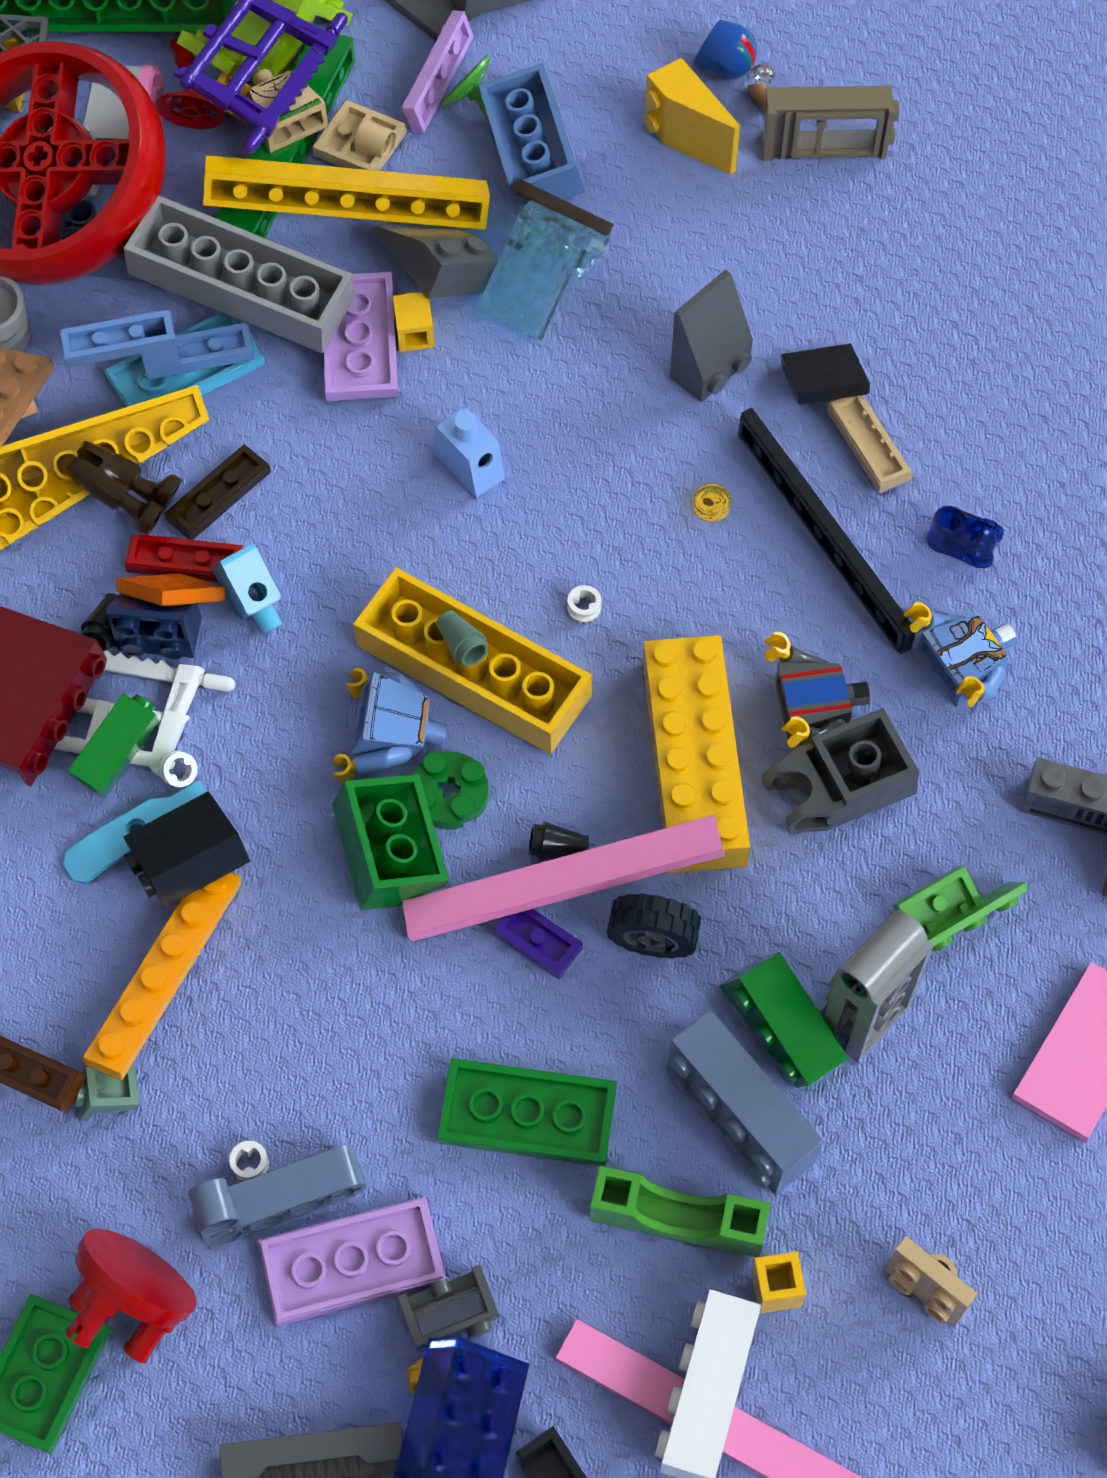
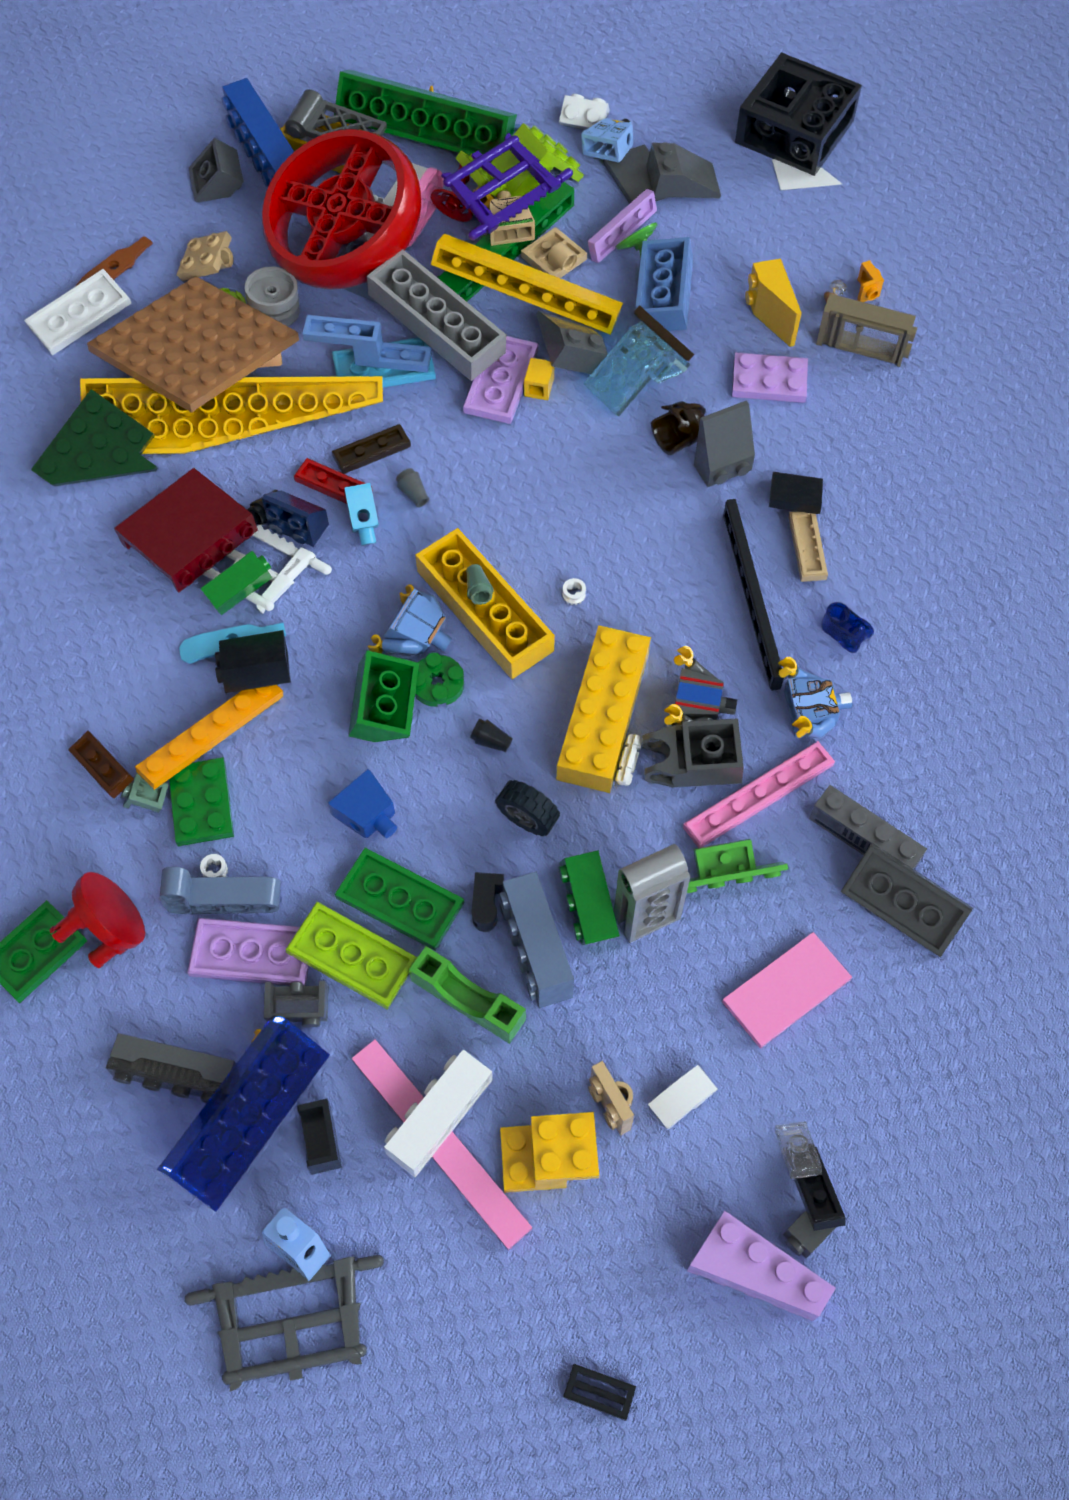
camera: 20 degrees right, 0 degrees up
(112, 476) = (307, 417): dark brown piece -> none
(170, 589) = (311, 497): orange tile -> none
(171, 779) = (265, 616): white bush -> none
(191, 1076) = (201, 803): none -> green plate
(299, 527) = (412, 486): none -> dark grey cone
(427, 1001) = (365, 807): none -> blue torso
(469, 452) = (537, 462): light blue torso -> none
(495, 1214) = (351, 955): none -> lime tile
(539, 940) = (453, 792): dark purple plate -> none
(563, 878) = (483, 758): bright pink tile -> none
(633, 331) = (678, 426): none -> dark brown helmet
(647, 1084) = (483, 904): none -> black leg
(712, 502) = (686, 553): clear yellow tile -> none
(722, 225) = (770, 377): none -> lavender plate
(727, 51) = (818, 264): blue helmet -> none
(755, 812) = (628, 760): none -> white axle
(778, 1282) = (512, 1062): yellow brick -> none
(803, 53) = (870, 281): none -> light orange bracket
(878, 1385) = (549, 1152): none -> yellow bracket
(942, 802) = (758, 794): none -> bright pink tile
(1016, 1244) = (682, 1096): none -> white slope

